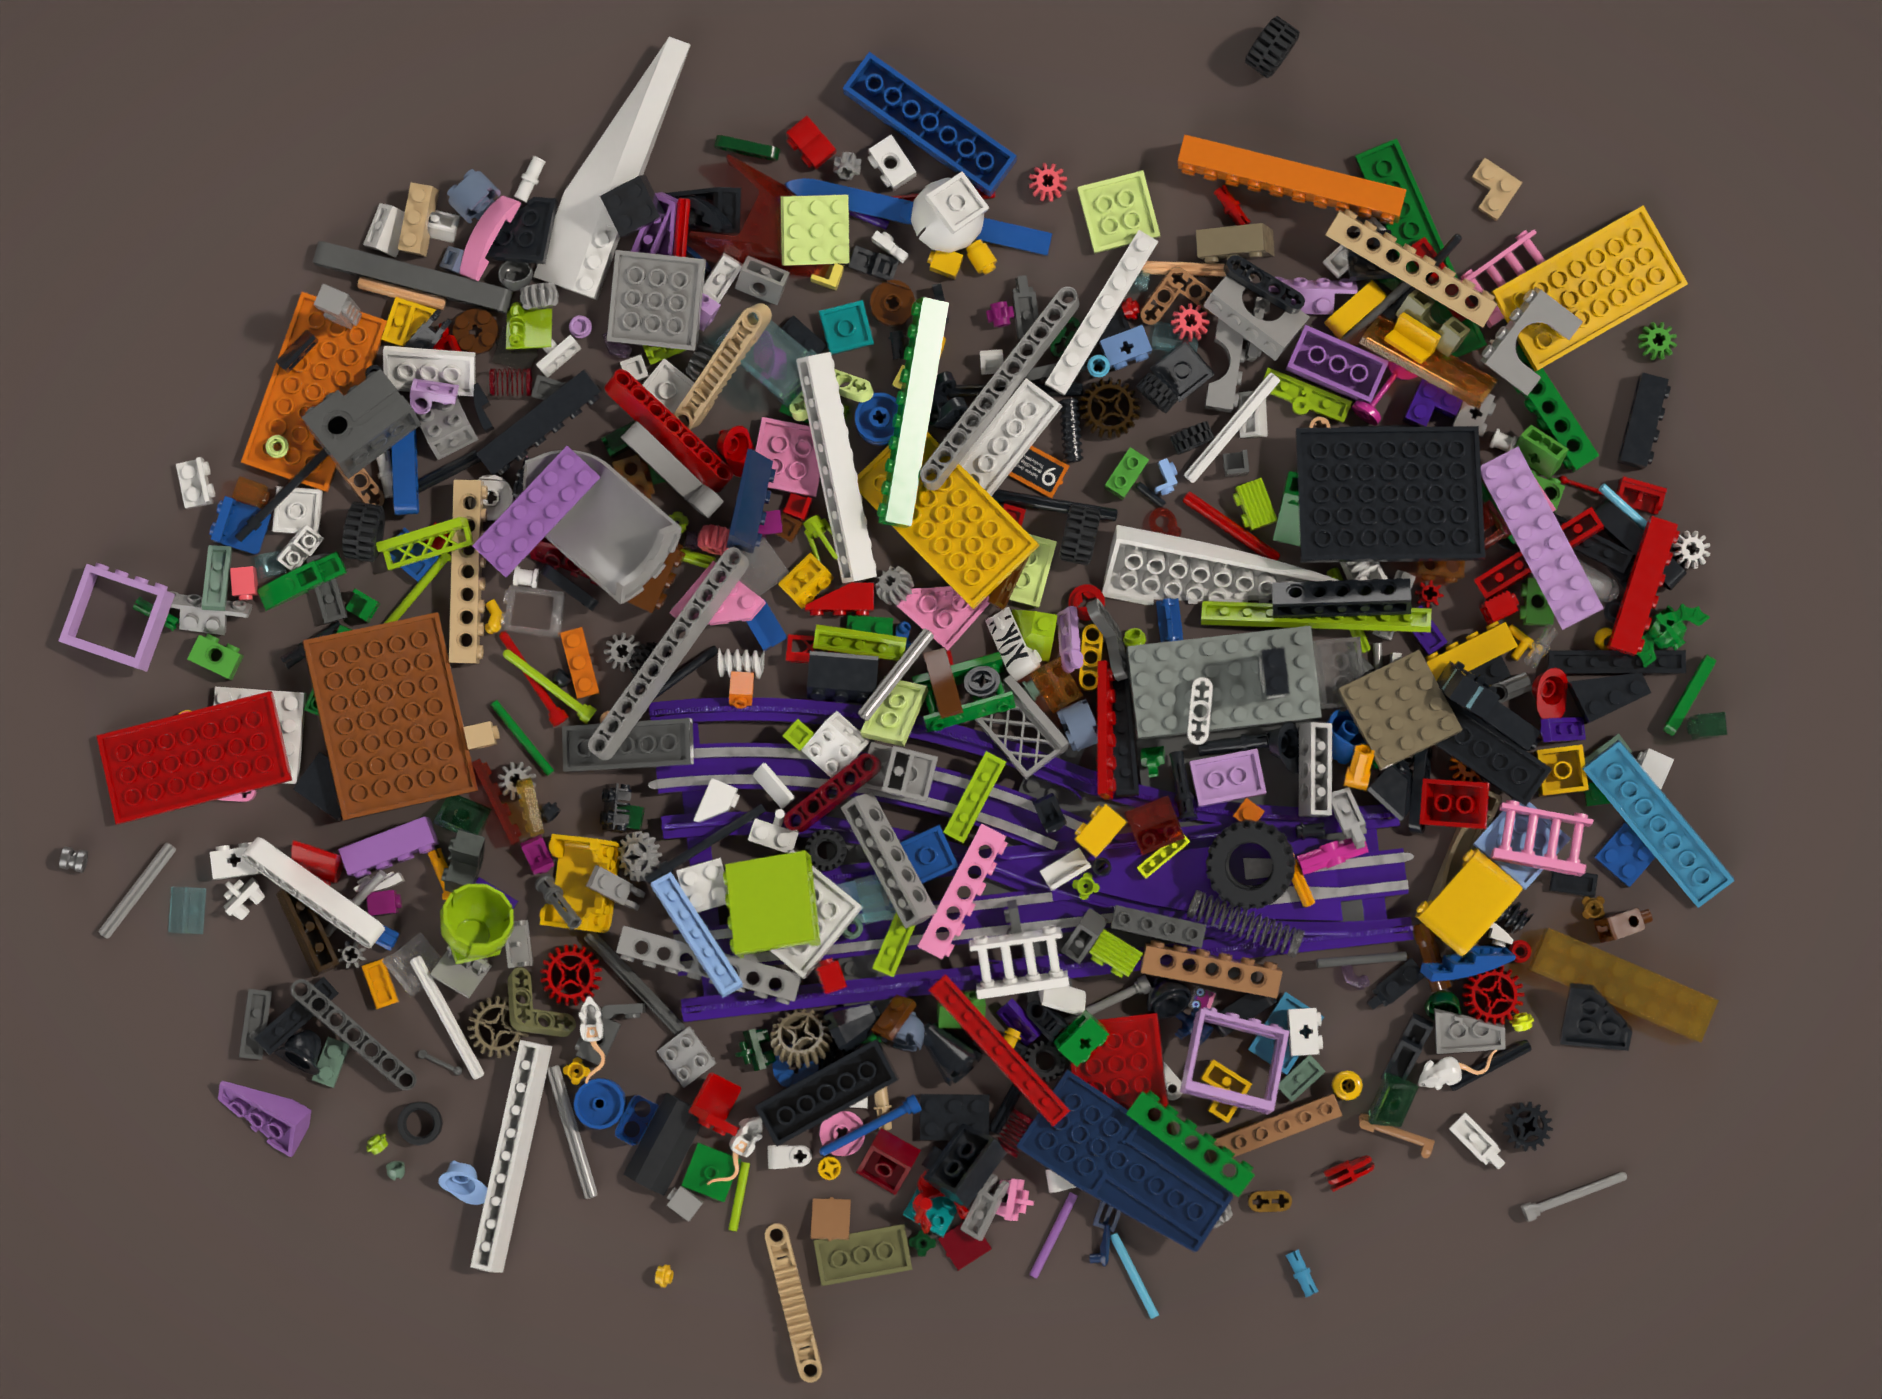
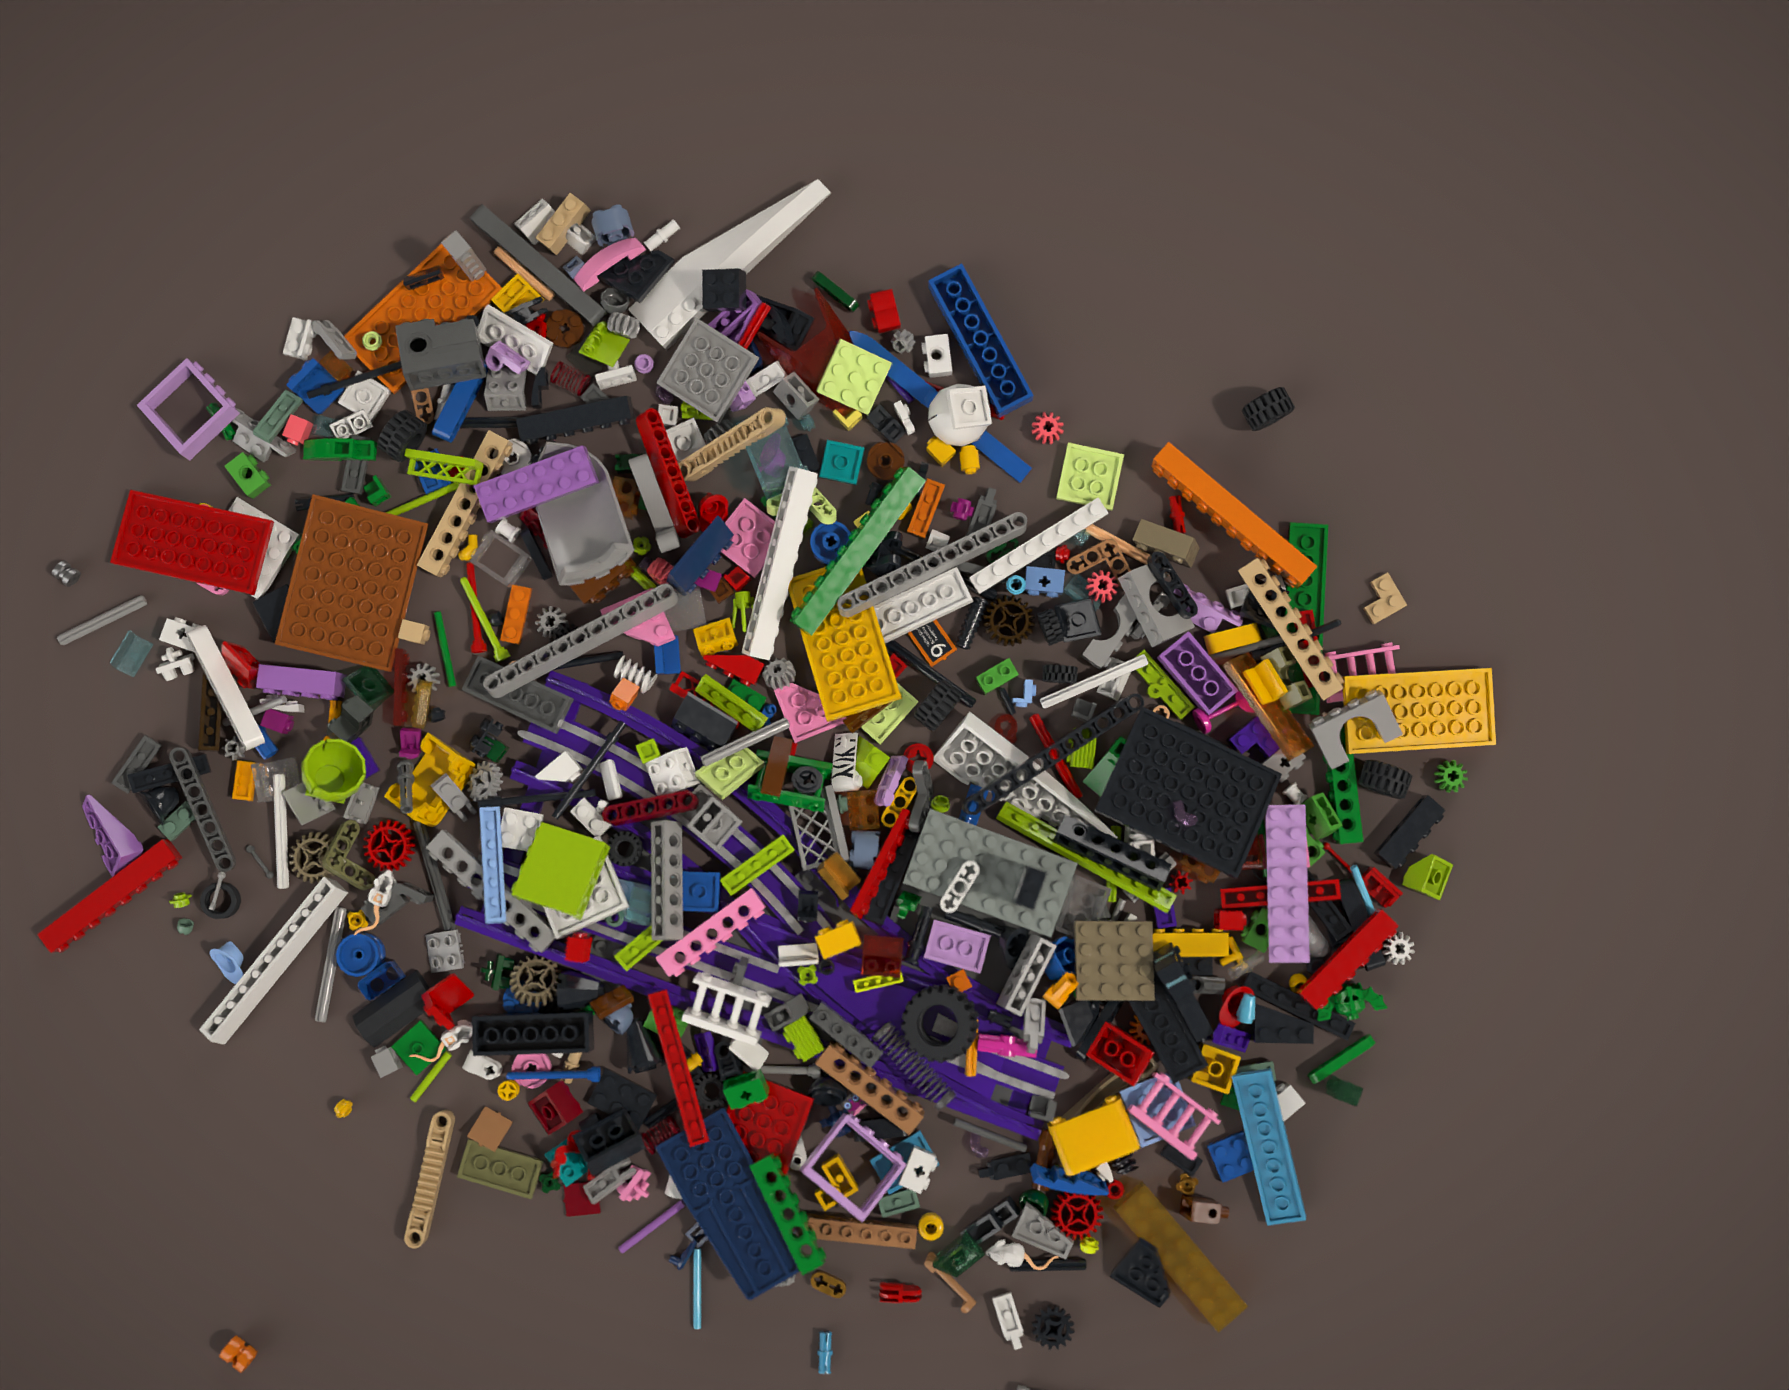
camera: 30 degrees right, 0 degrees up
(236, 465) = (334, 339): none -> light grey hinge
(299, 1178) = (109, 896): none -> red brick
(410, 1094) = (221, 875): none -> light grey hinge
(753, 742) = (611, 738): none -> black bar
(788, 303) = (807, 422): none -> clear light blue plate
(961, 332) = (926, 508): none -> orange plate
(1066, 763) = (838, 875): none -> pearl gold panel
(1235, 516) = (1062, 752): none -> black beam
(1396, 522) = (1182, 816): none -> clear purple arm
(1401, 900) = (1042, 1108): none -> dark grey panel
(1563, 691) = (1246, 1009): none -> medium azure cone
(1589, 378) = (1385, 779): none -> black tyre
(1686, 458) = (1428, 876): none -> lime slope

